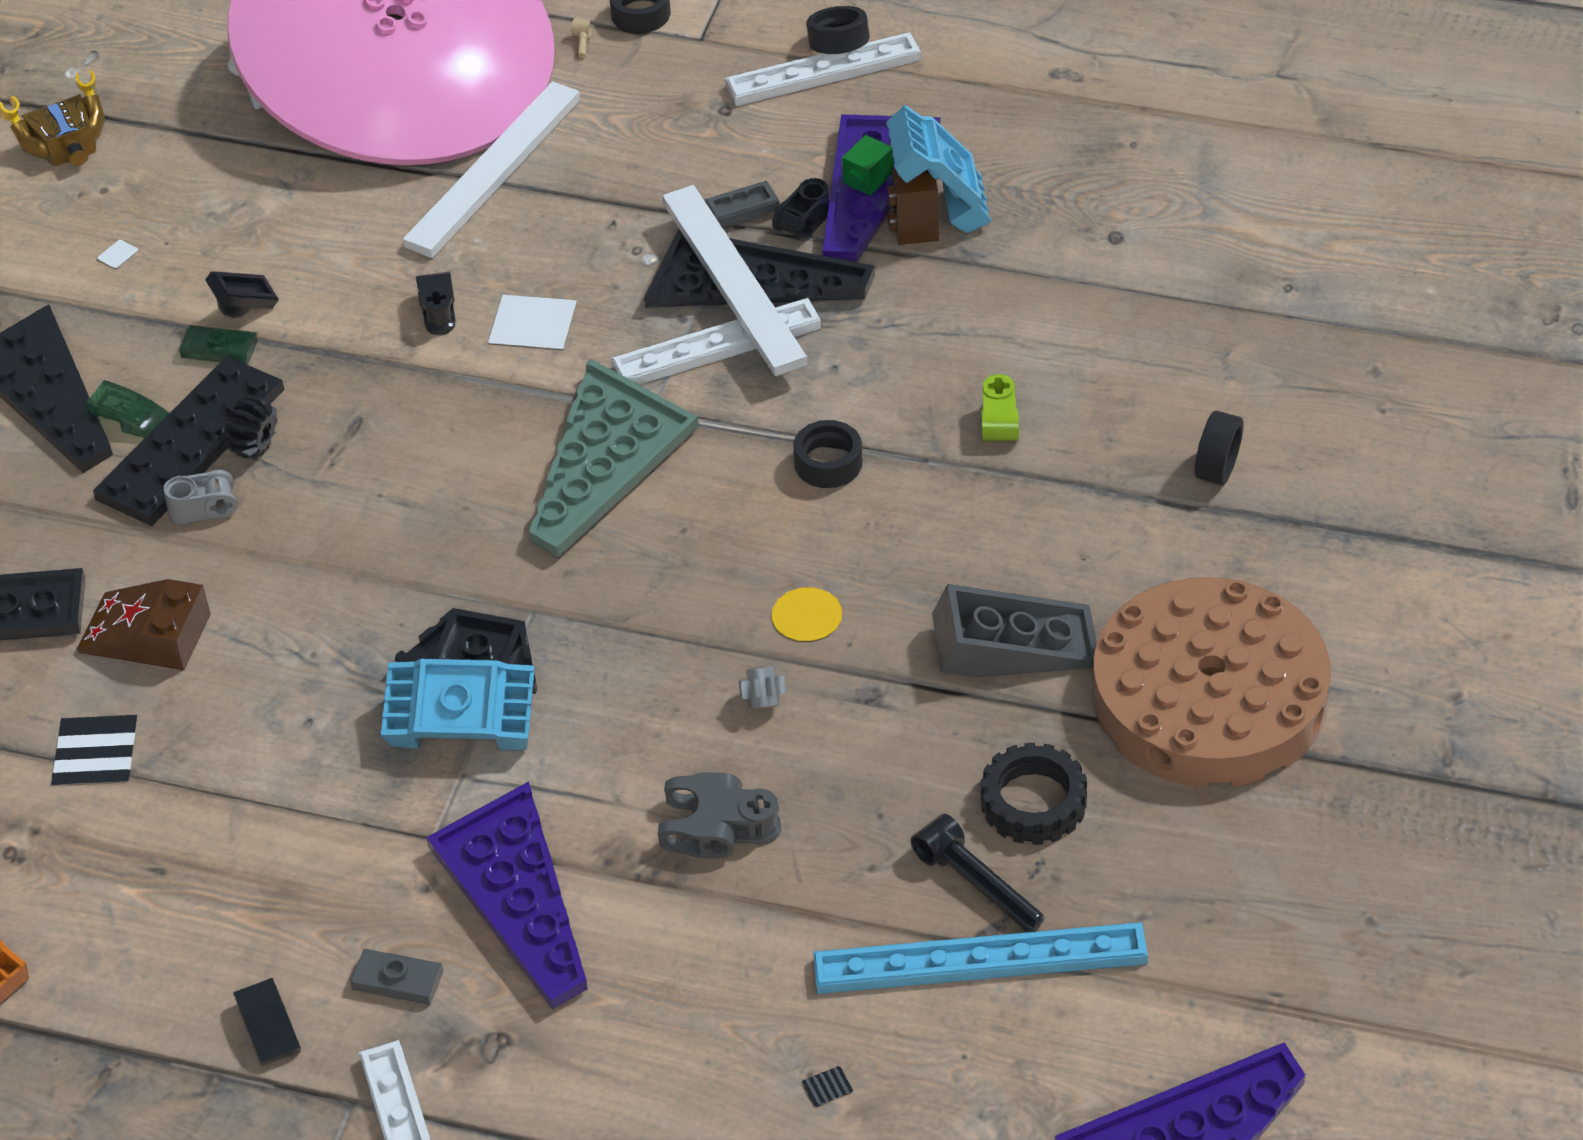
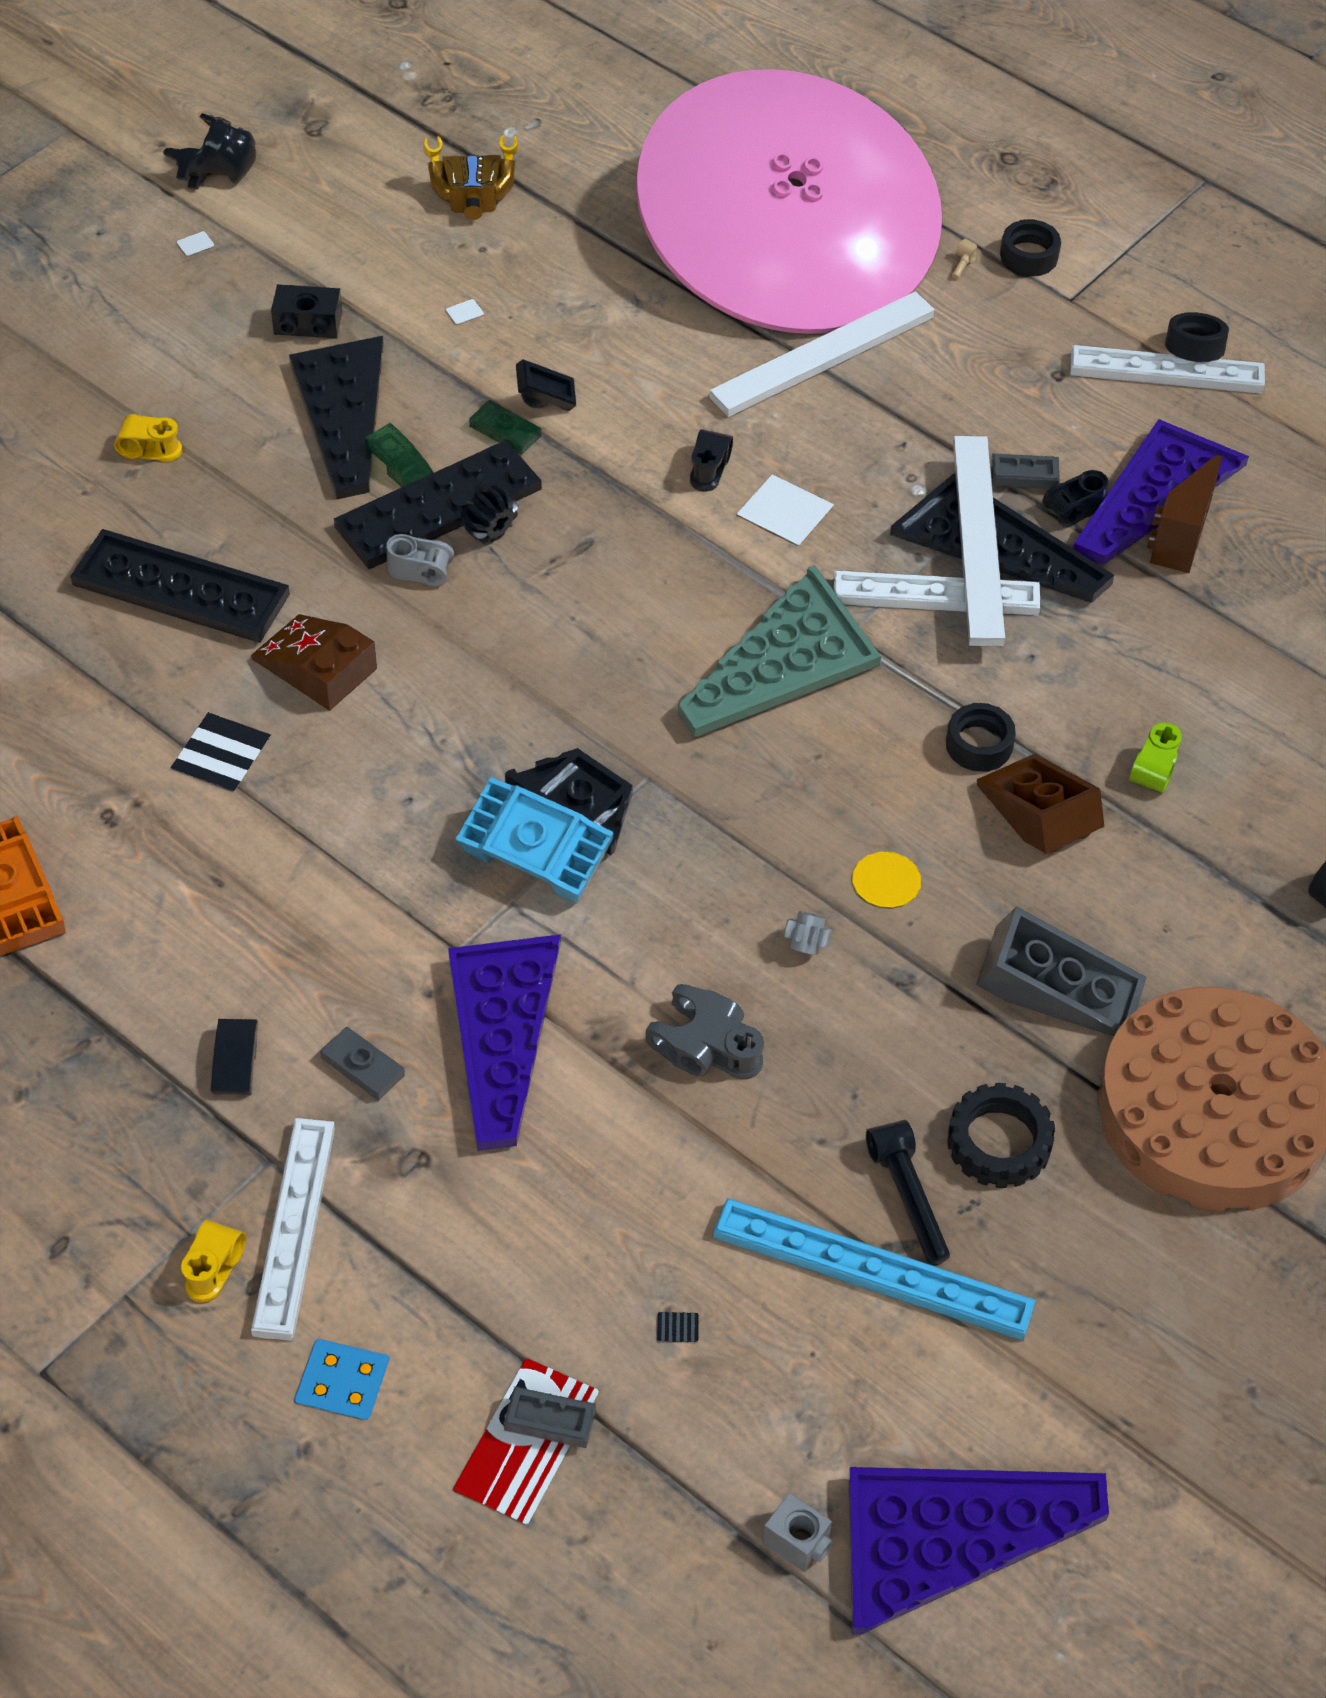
camera: 20 degrees right, 5 degrees up
(867, 165) = (1153, 477): green brick -> none
(917, 488) = (1044, 802): none -> reddish brown slope
(925, 144) = (1212, 482): medium azure plate -> none

